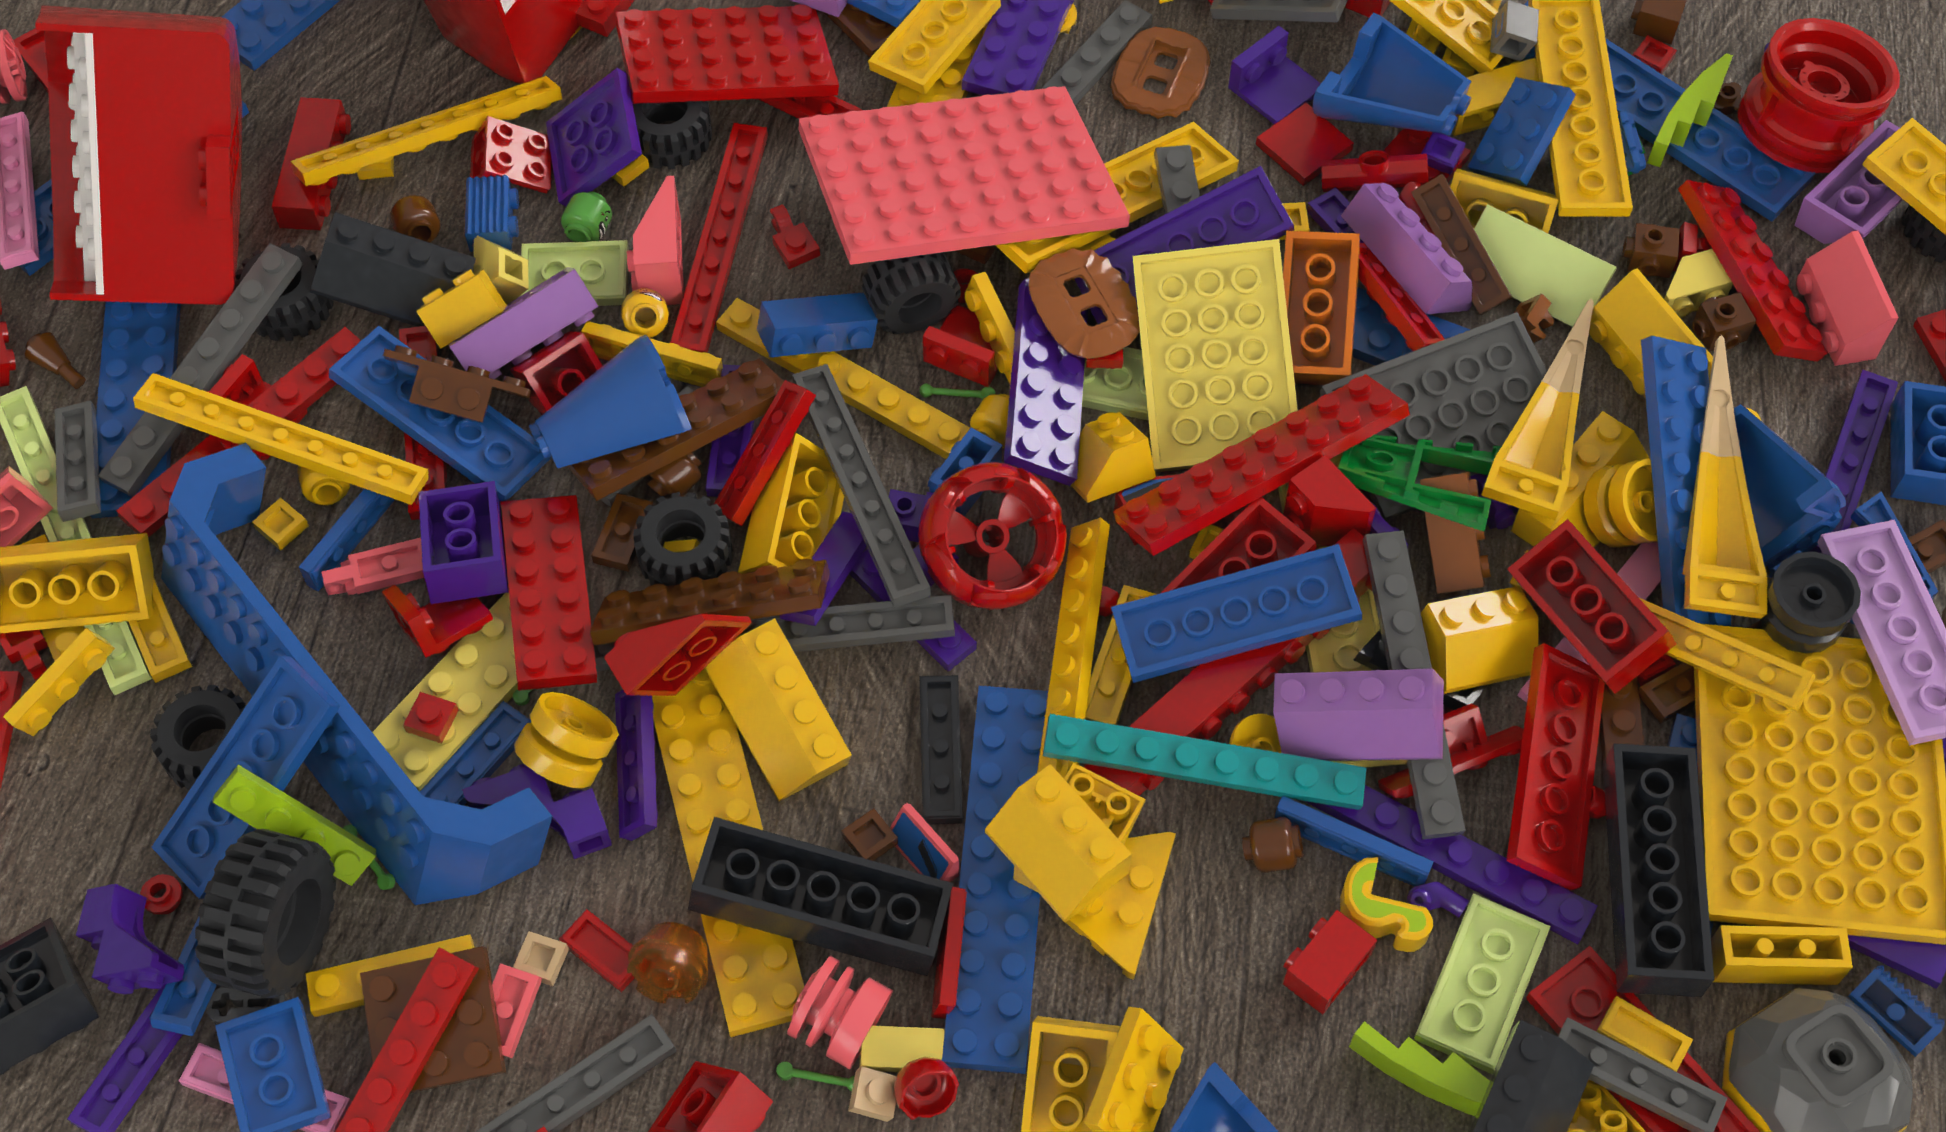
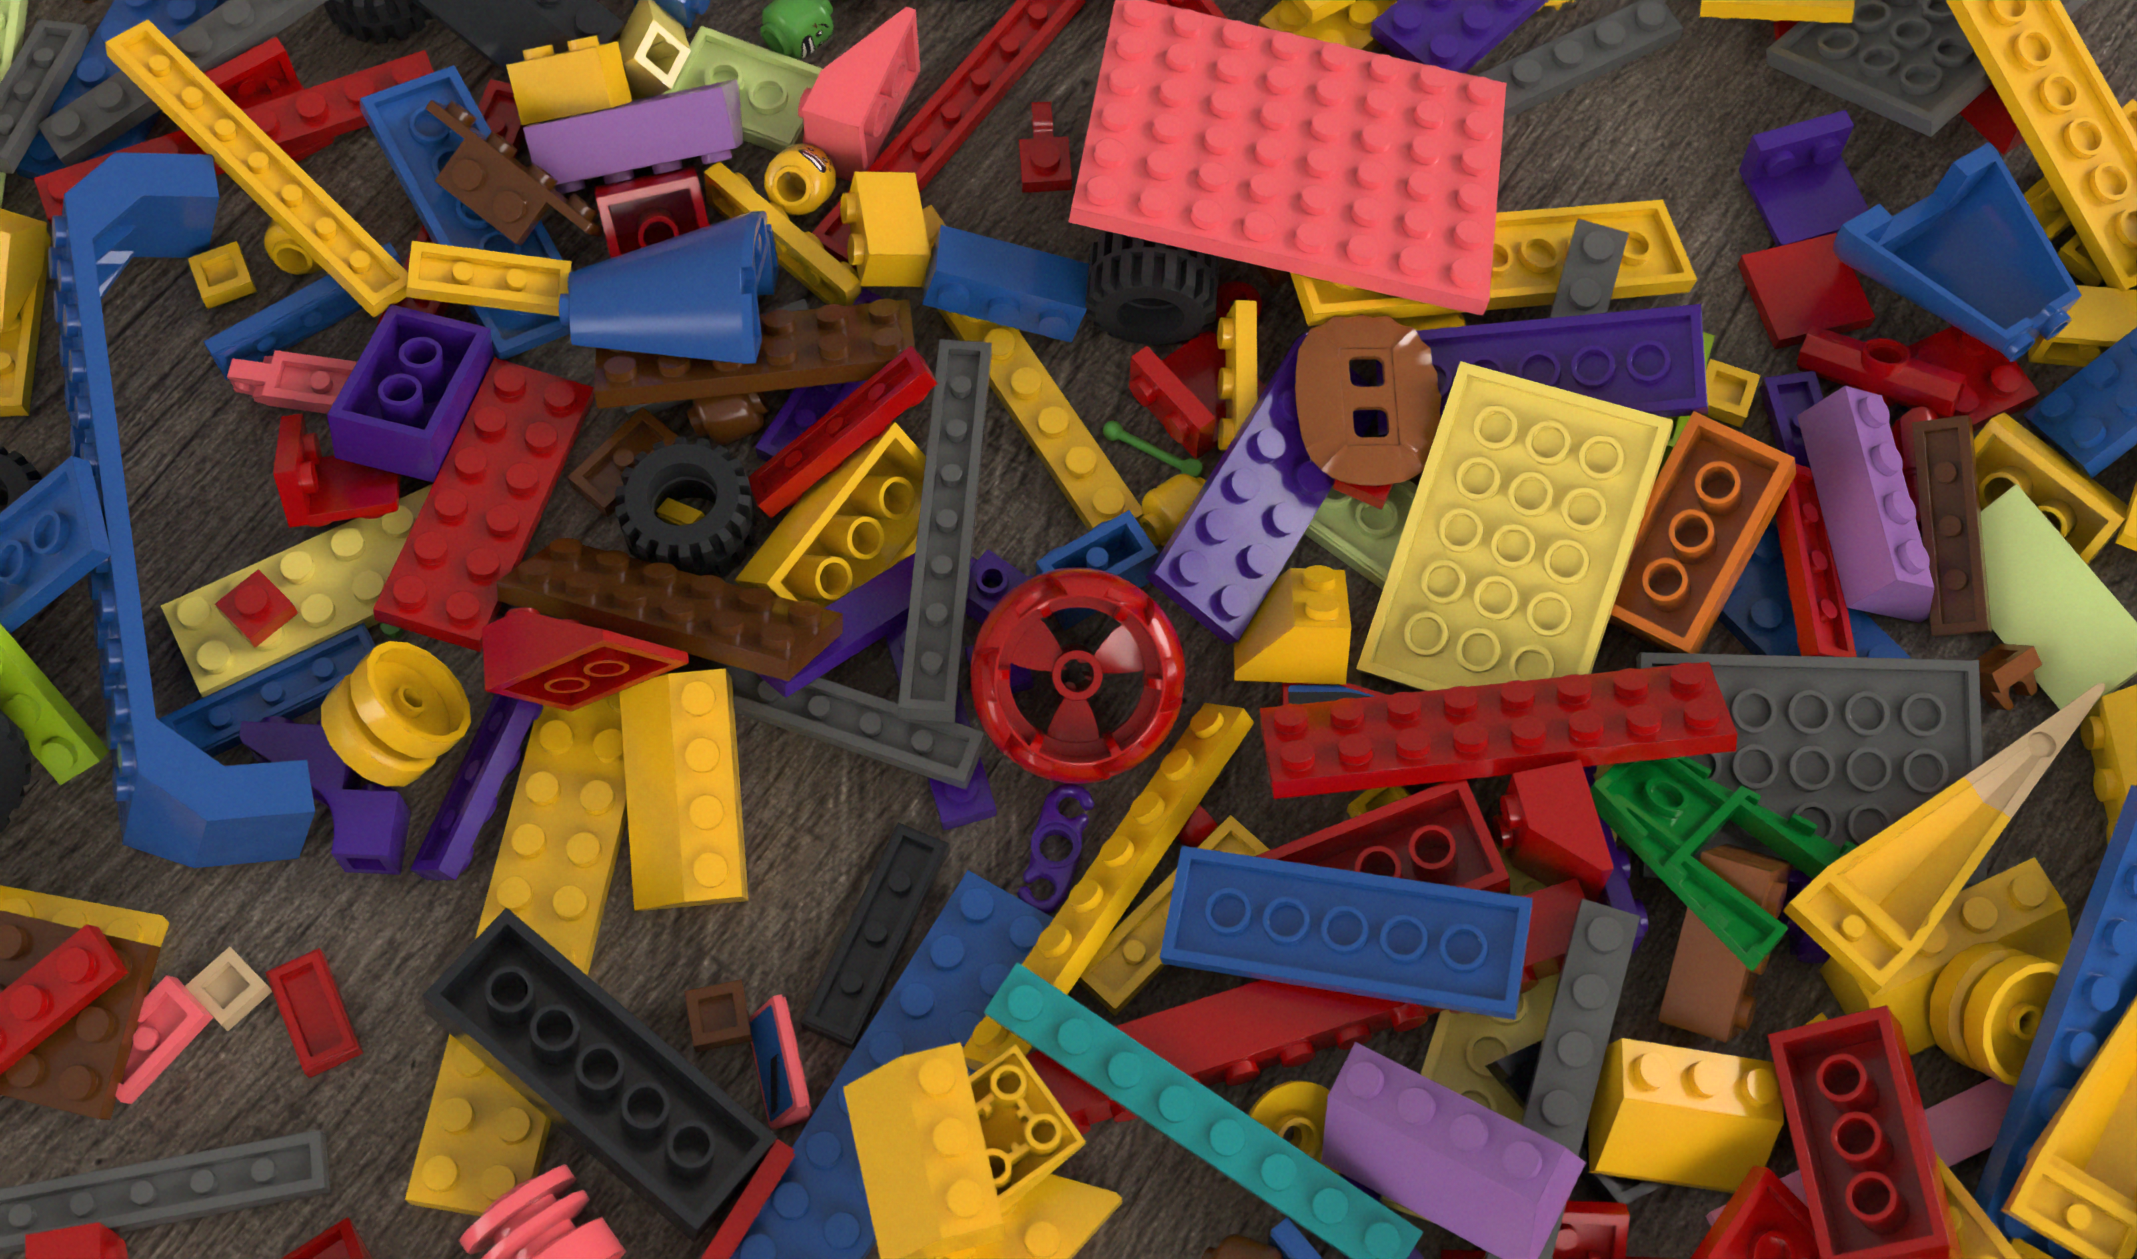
camera: 25 degrees right, 5 degrees up
(385, 880) = (103, 796): bright green hinge -> none
(477, 450) = (486, 278): none -> yellow plate
(669, 963) = (373, 1071): clear orange cone -> none
(724, 319) = (886, 229): none -> yellow brick
(1018, 636) = (1053, 823): none -> dark purple piece
(1138, 65) = (1630, 91): dark orange piece -> none
(1443, 152) = (1994, 382): dark purple tile -> none

